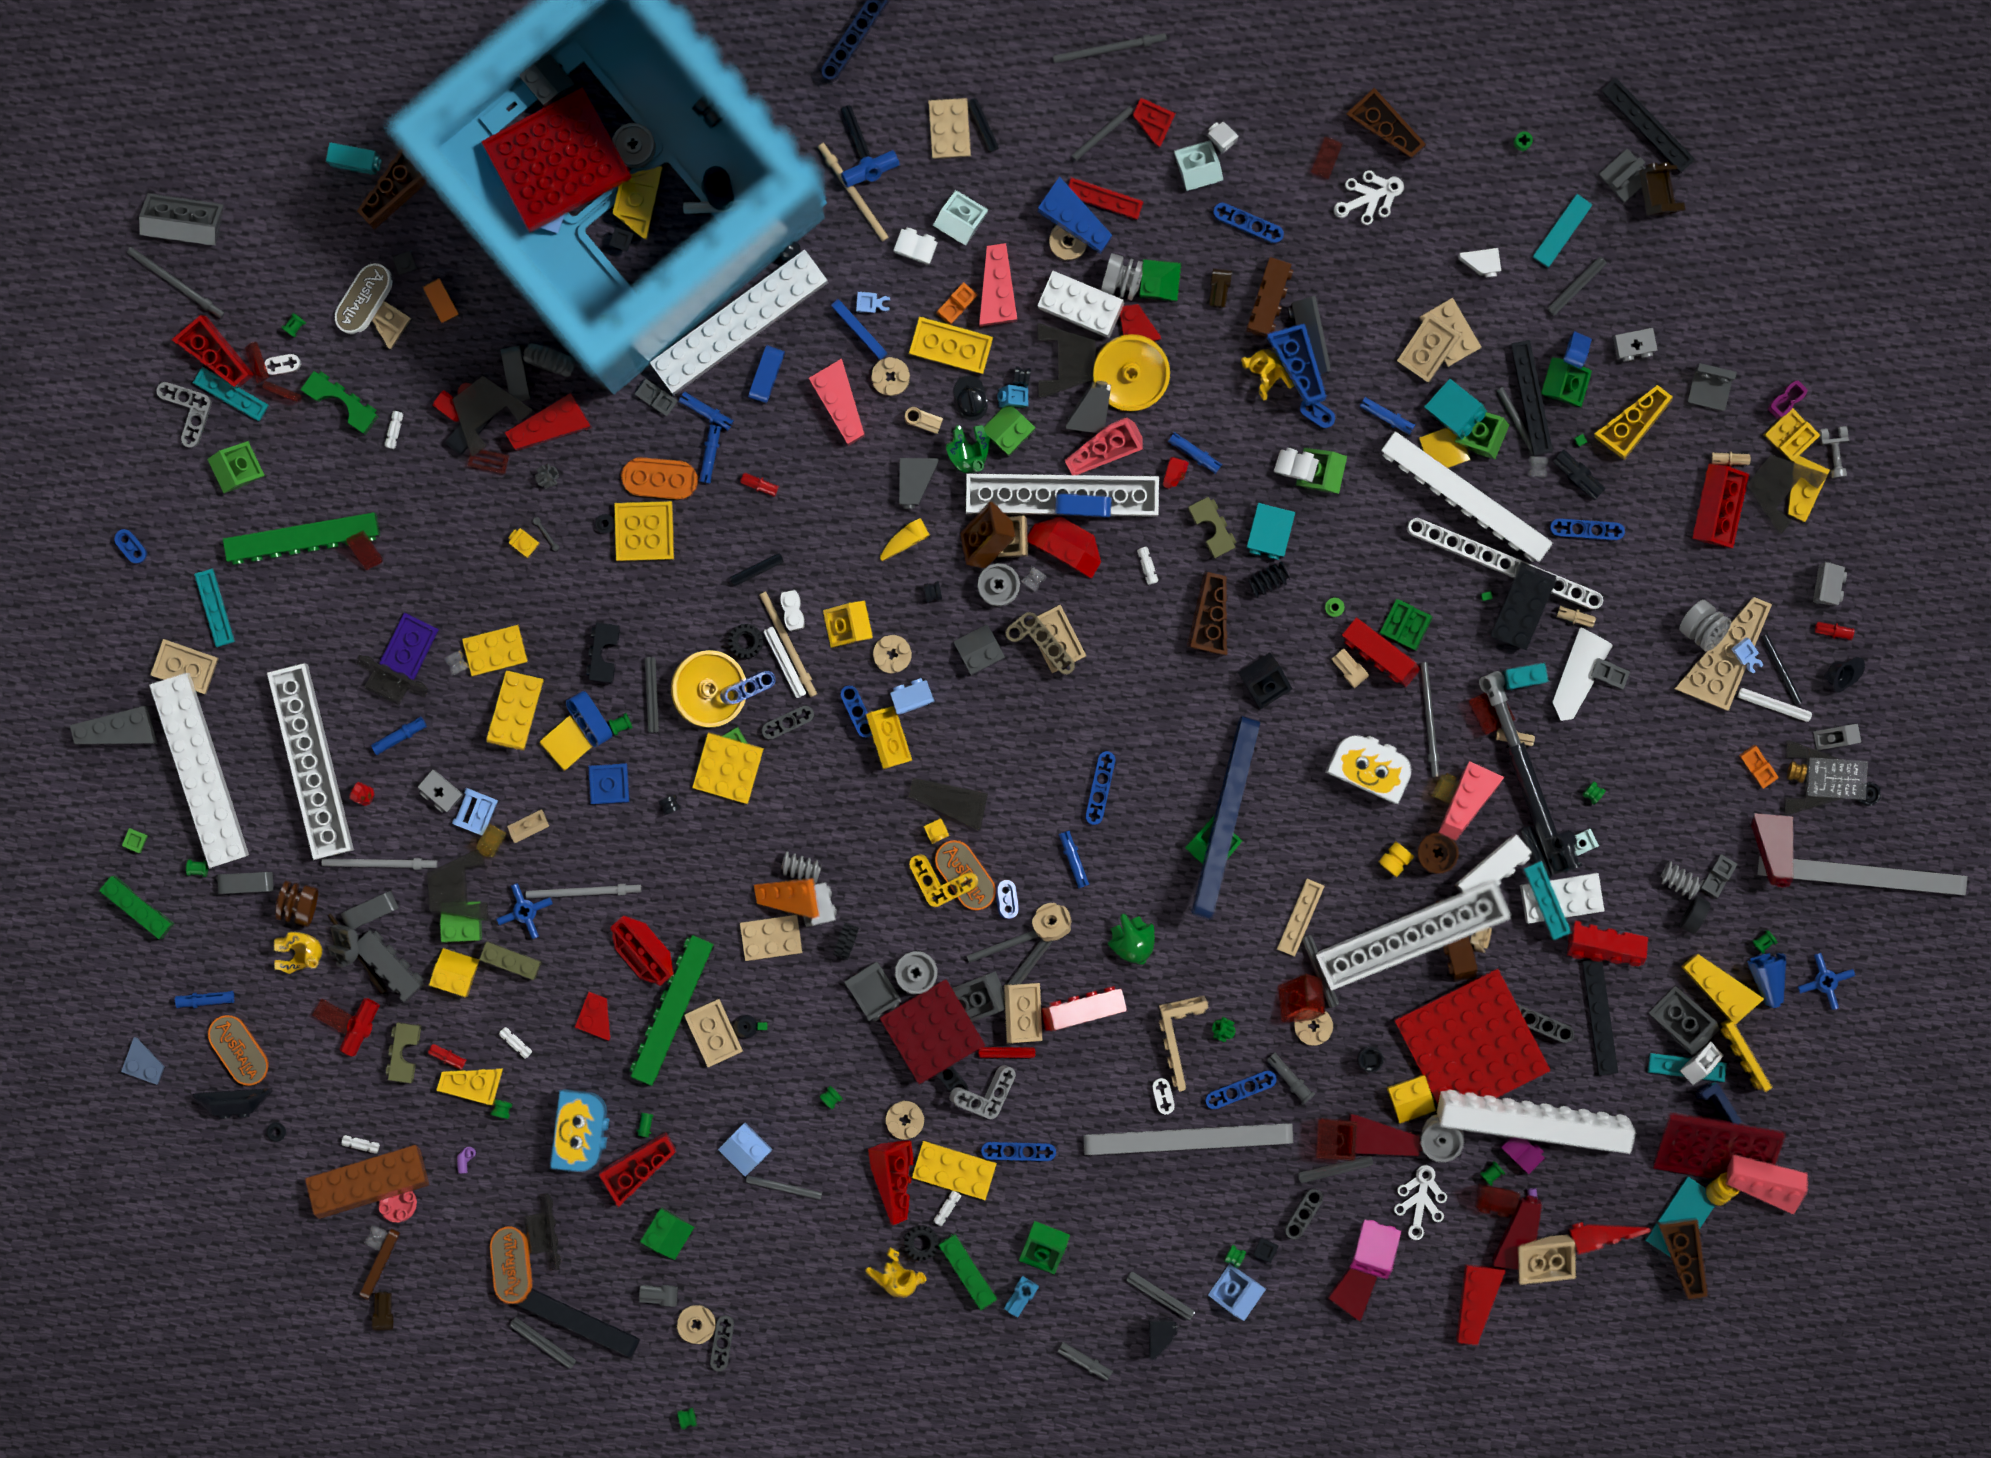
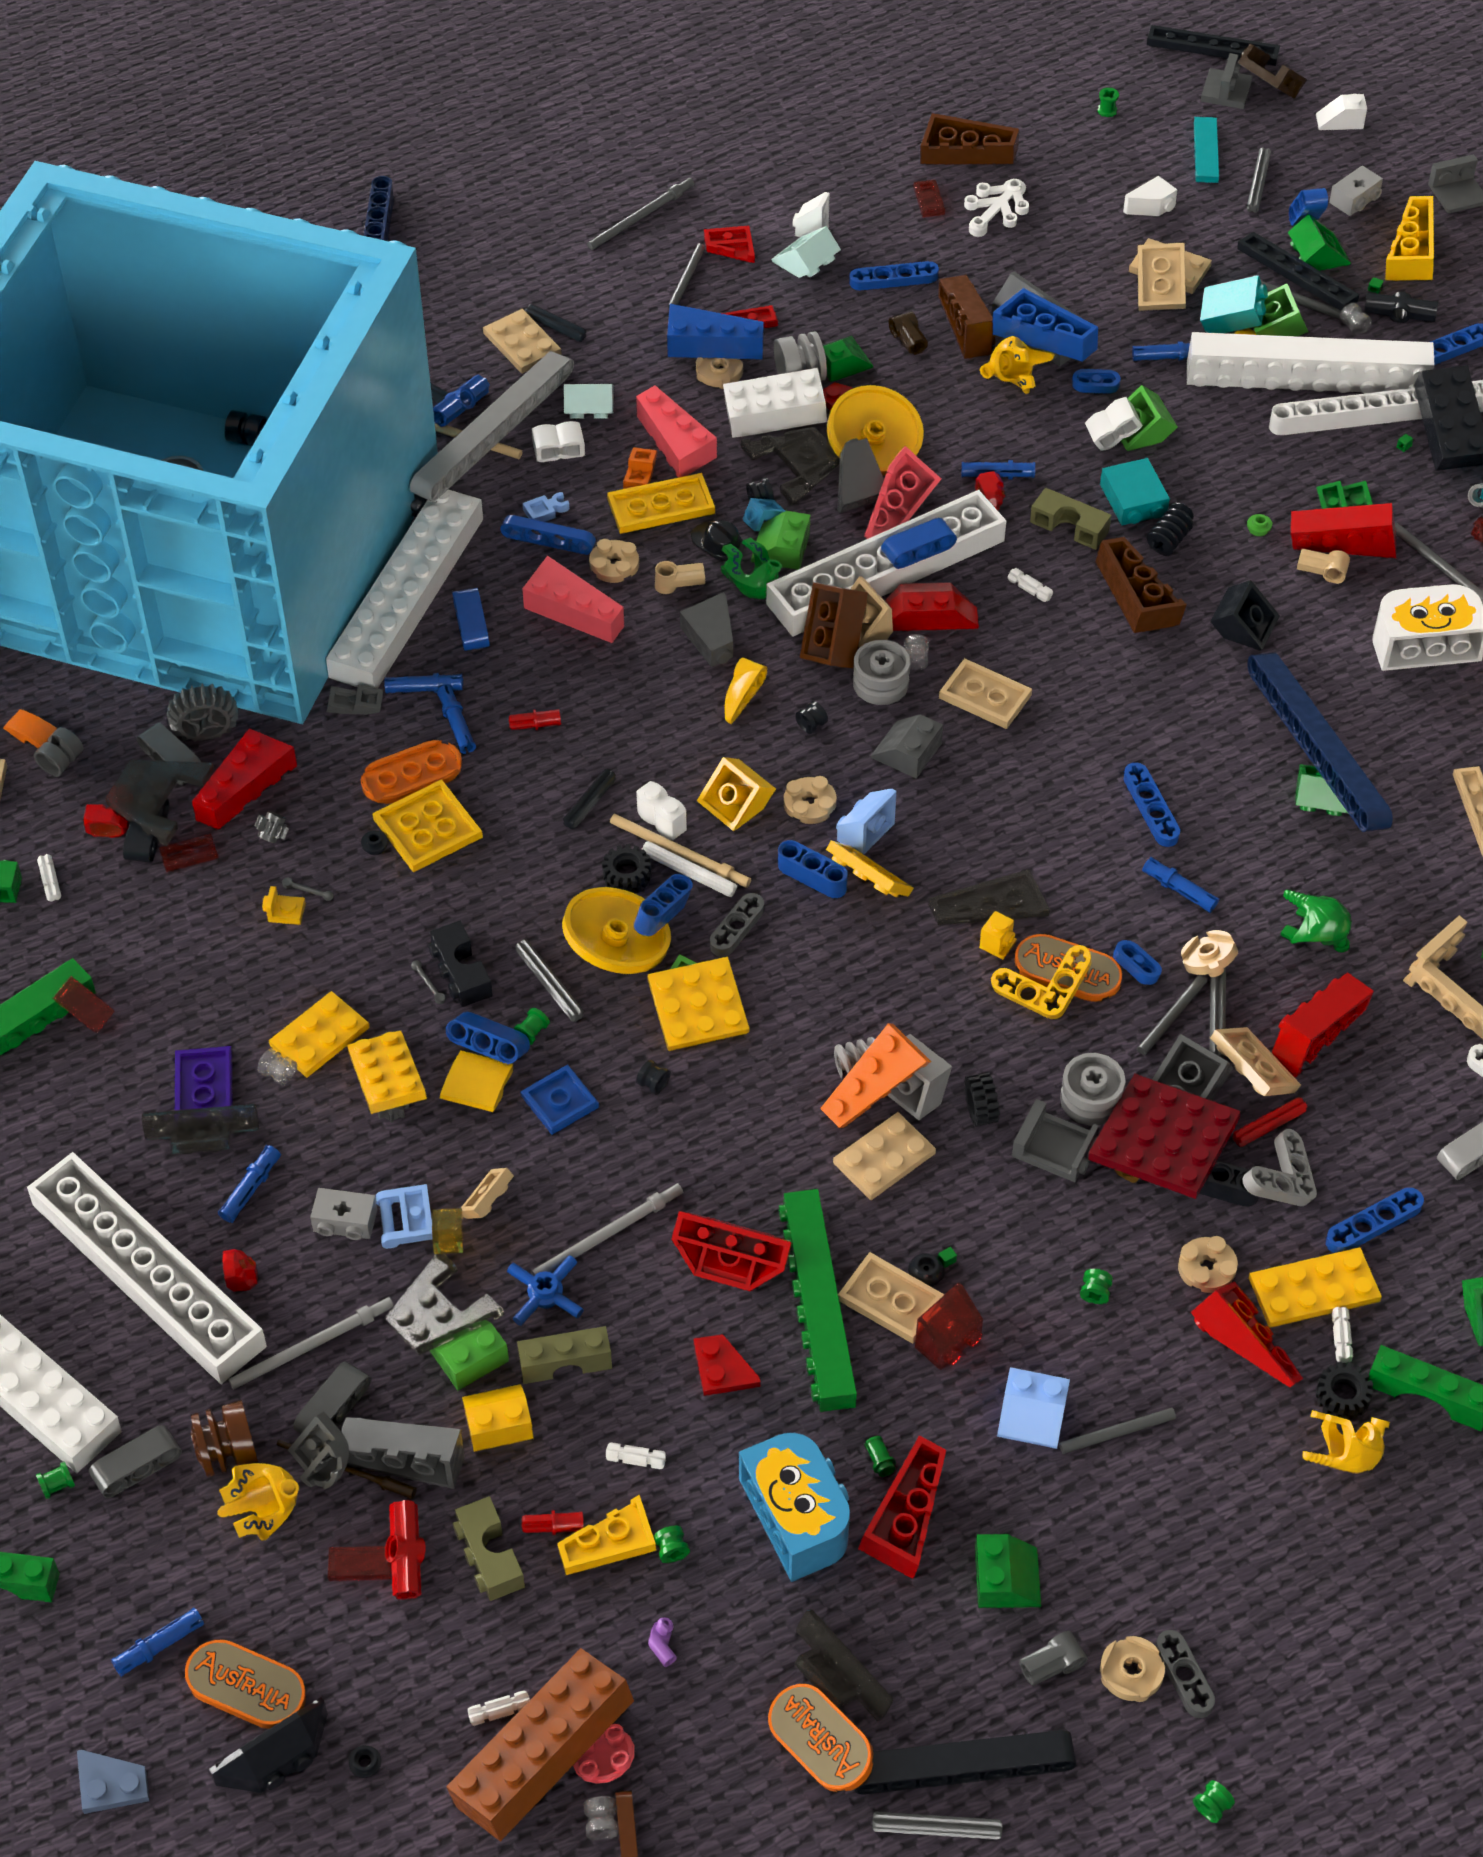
camera: 30 degrees left, 35 degrees down
(439, 334) = (58, 751): none -> dark grey wheel
(579, 634) = (438, 997): none -> dark grey hinge
(729, 1076) = (948, 1328): none -> clear red slope
(874, 214) = (491, 426): none -> light grey beam
(1044, 645) = (975, 690): dark tan beam -> none
(1685, 259) = (1343, 113): none -> white slope

